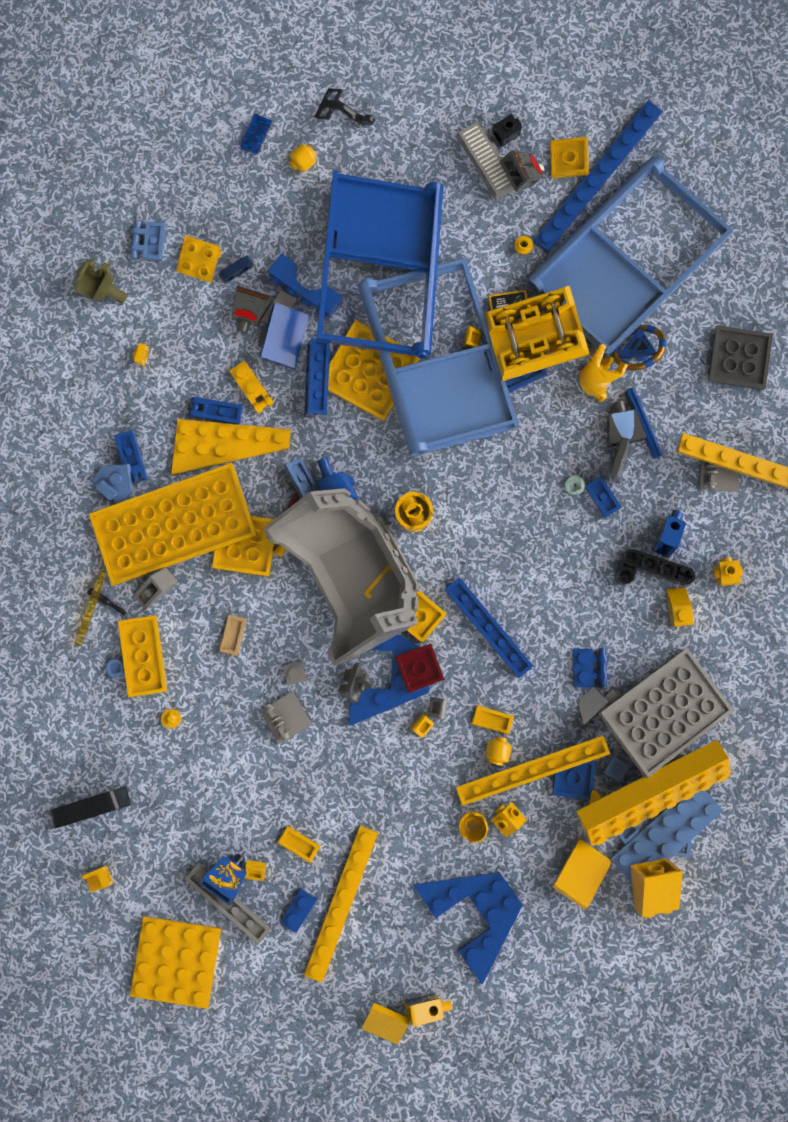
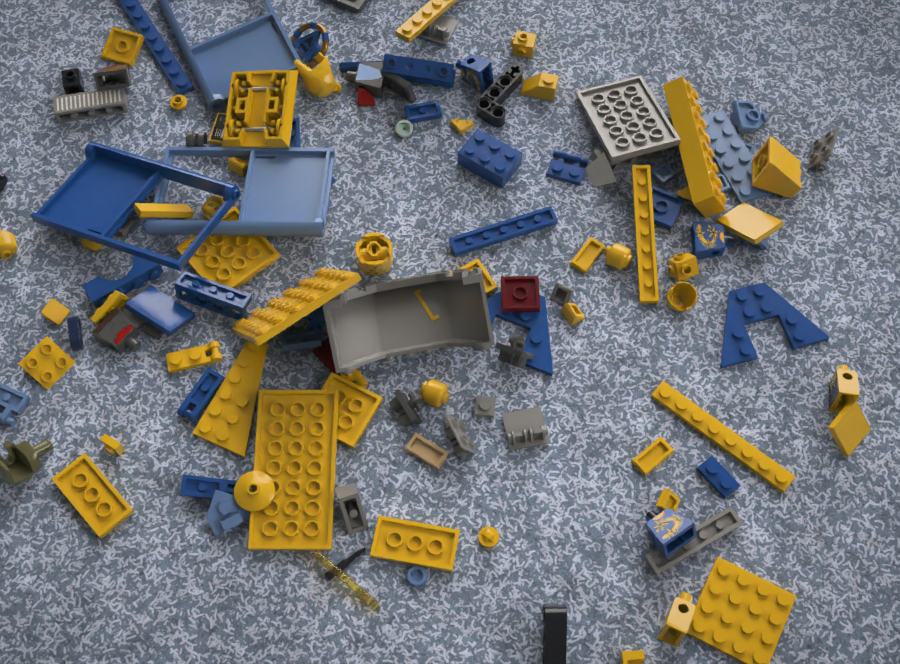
camera: 70 degrees left, 20 degrees down
(91, 359) = (93, 495): none -> yellow plate
(140, 908) = (677, 620): none -> yellow torso
(146, 503) = (261, 497): none -> yellow dish
(251, 240) = (55, 312): none -> yellow slope
(254, 660) = (455, 430): none -> light grey hinge
(268, 604) = (401, 401): none -> dark grey hips
(275, 291) = (114, 300): none -> yellow plate
(290, 622) = (434, 393): none -> yellow head
(315, 463) = (294, 304): none -> yellow plate
(386, 291) = (156, 210): none -> yellow tile
(409, 335) = (211, 206): none -> yellow head
(483, 283) = (196, 139): none -> dark grey wheel
(550, 837) = (709, 240): none -> blue torso
(568, 585) = (489, 158): none -> blue brick
(598, 431) = (365, 98): none -> red tile
(603, 542) = (462, 125): none -> yellow tile
(643, 476) = (420, 70): none -> blue fence
(704, 930) = (822, 150): none -> light grey hinge
(722, 839) = (746, 117): none -> medium blue plate

